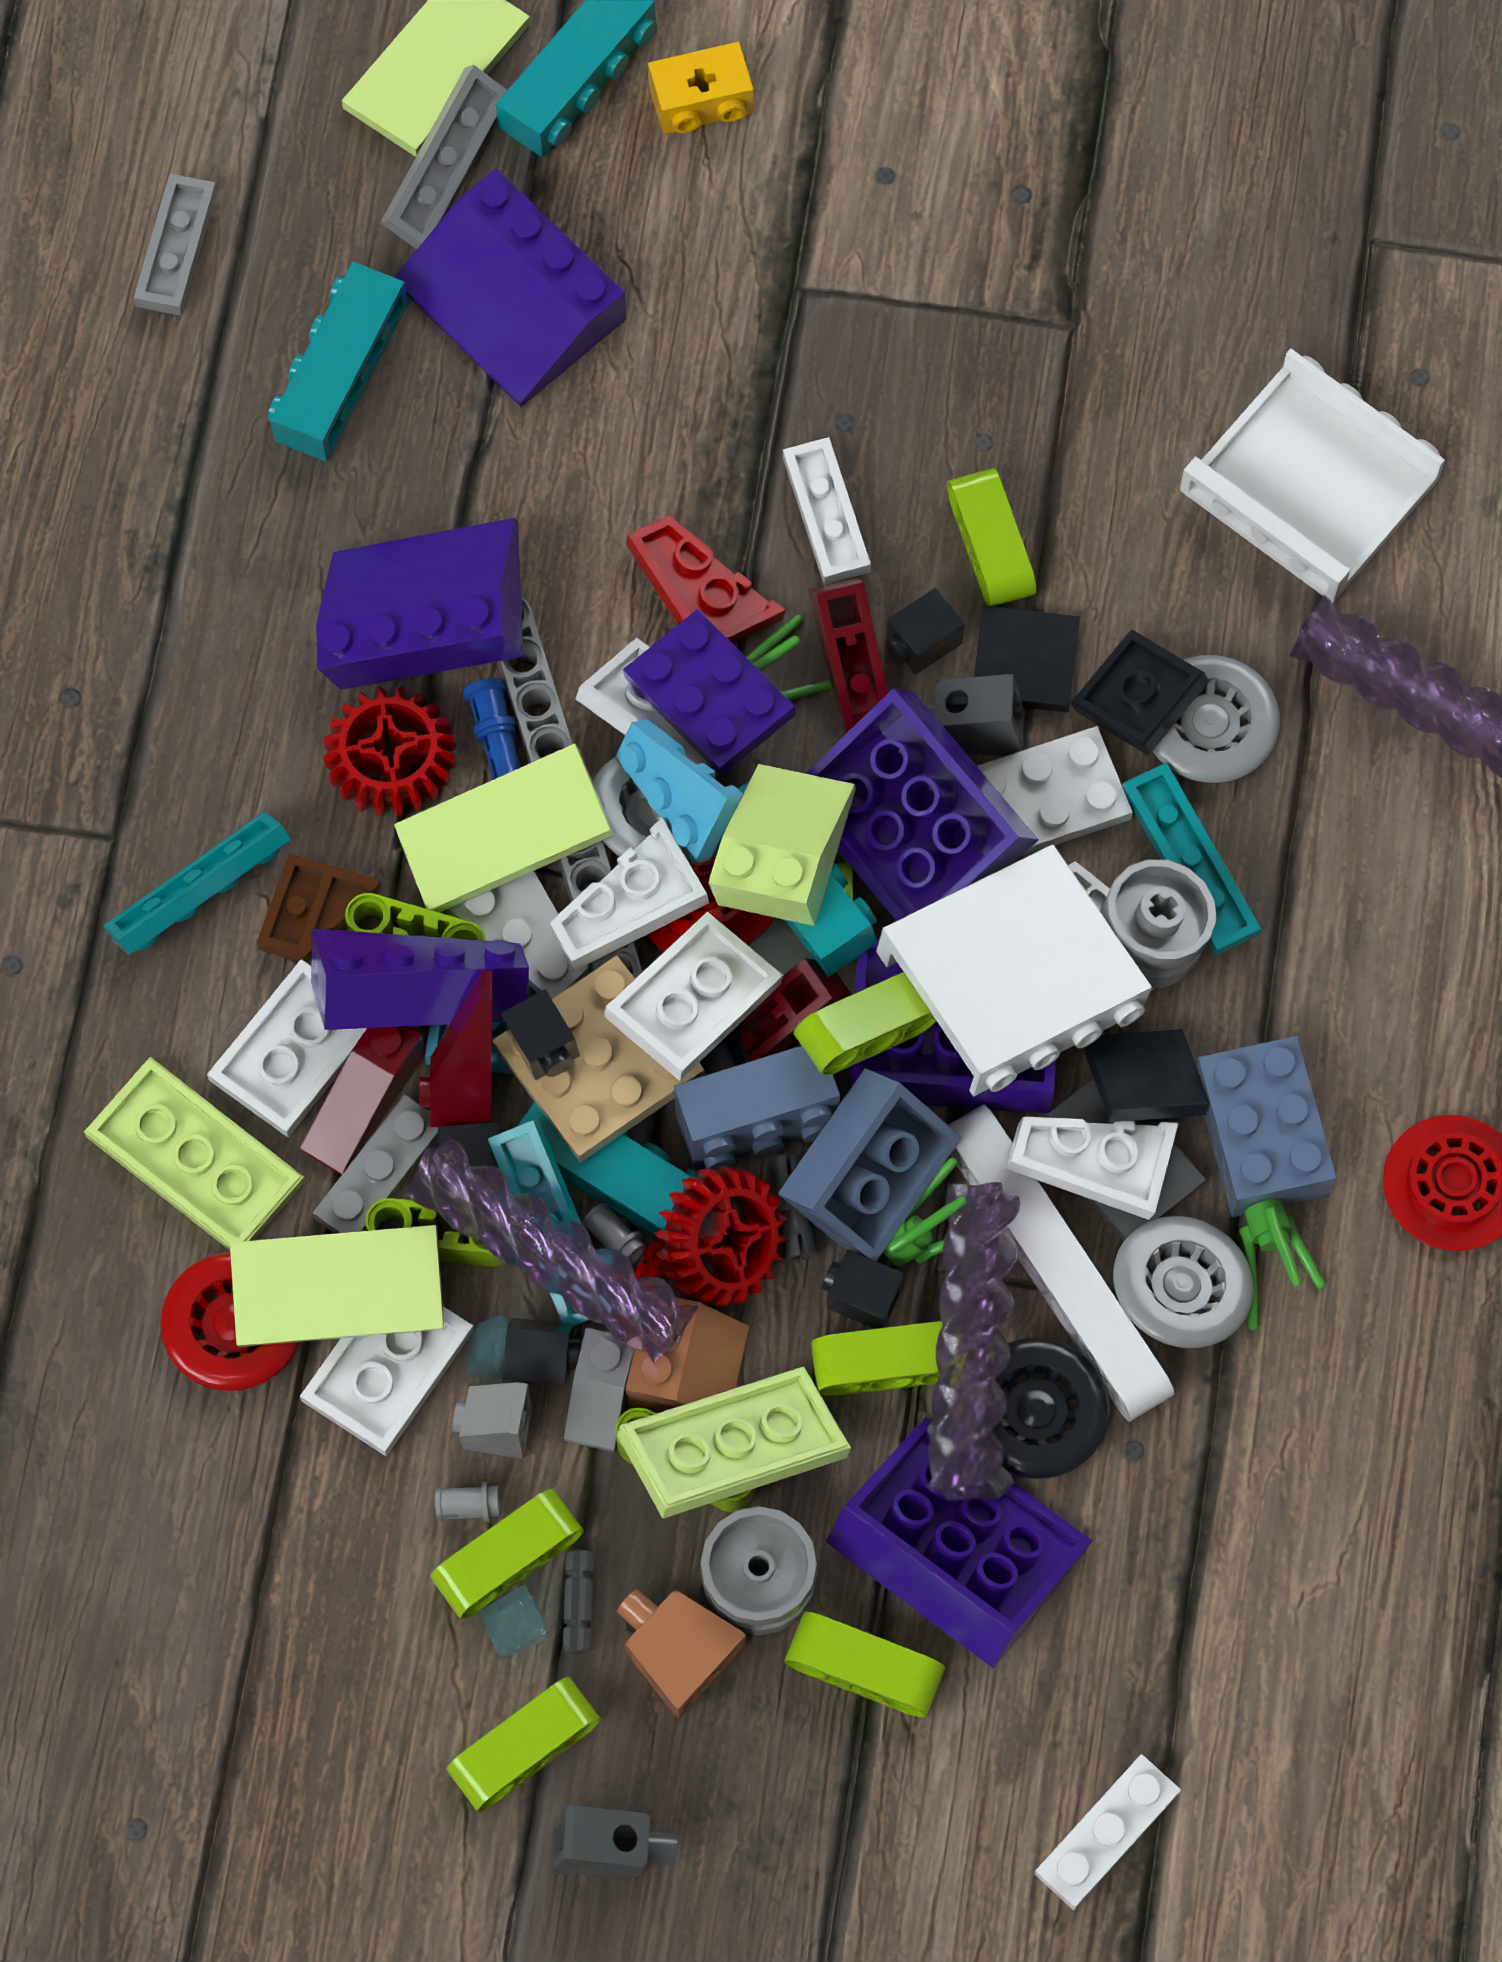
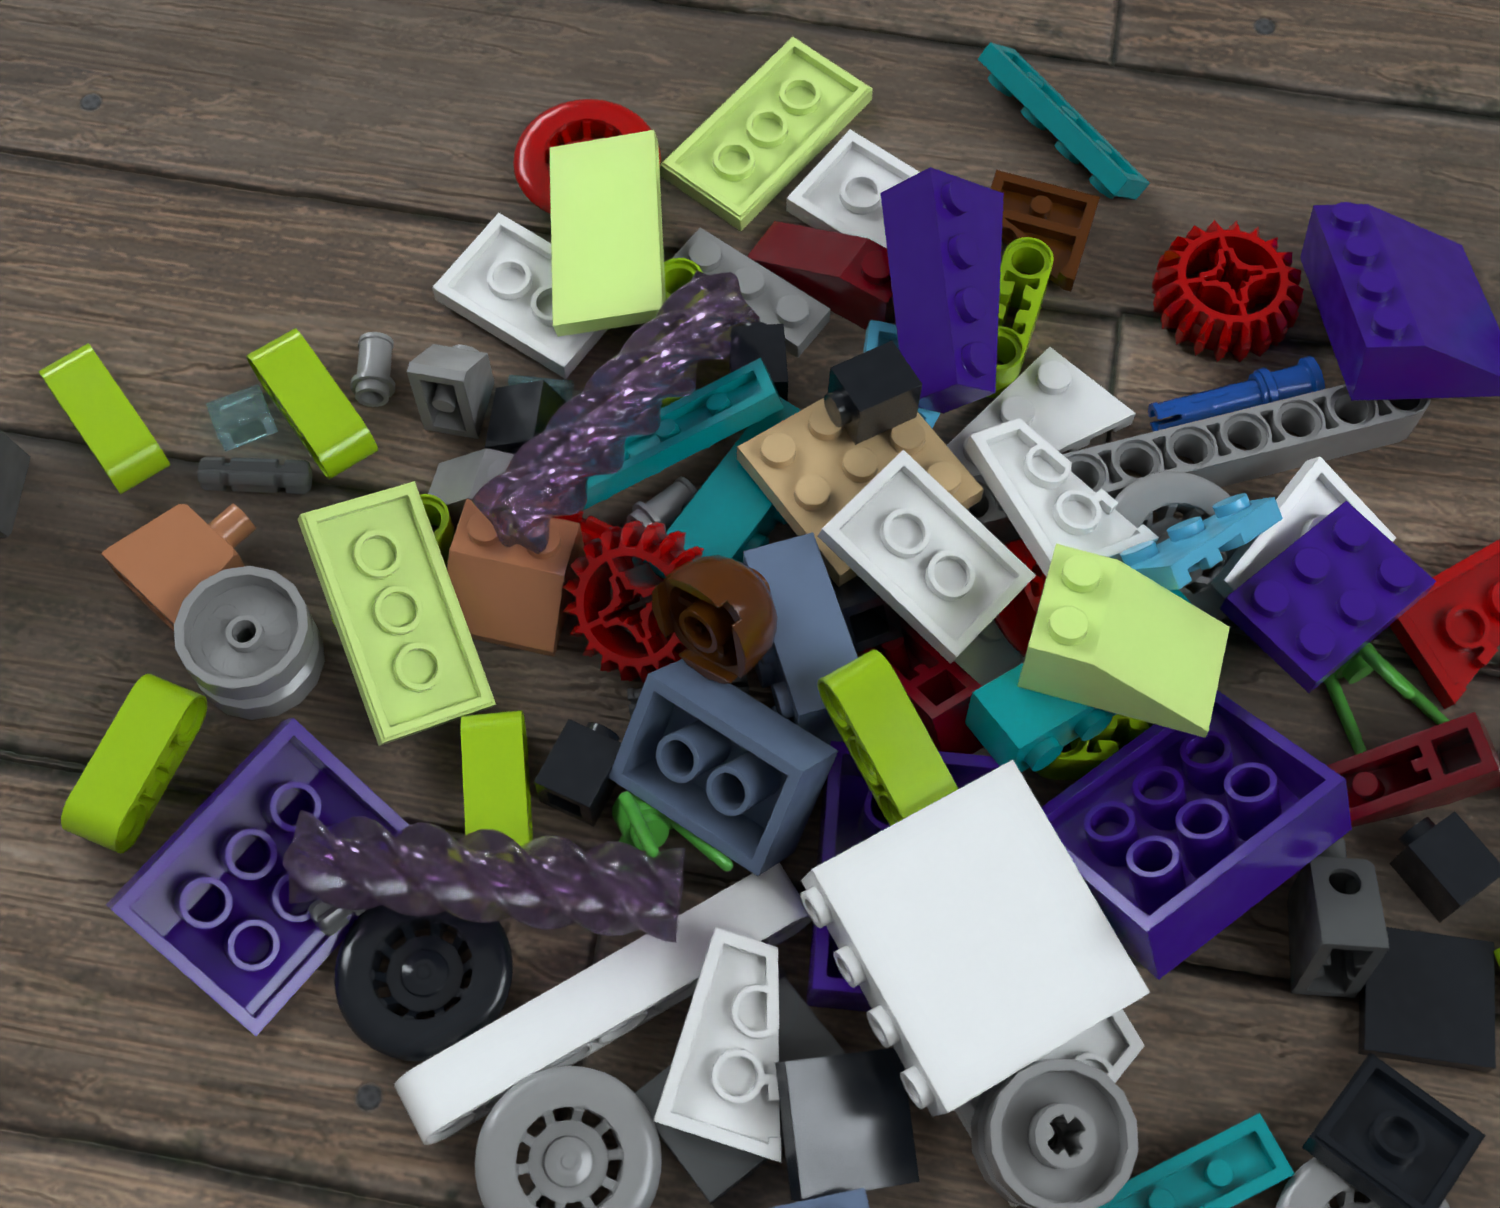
camera: 90 degrees right, 5 degrees down
(462, 1063) = (842, 331): dark red slope -> none
(503, 829) = (1138, 388): yellowish green tile -> none
(763, 1151) = (718, 614): none -> reddish brown cylinder
(1062, 787) = (1244, 1025): white plate -> none

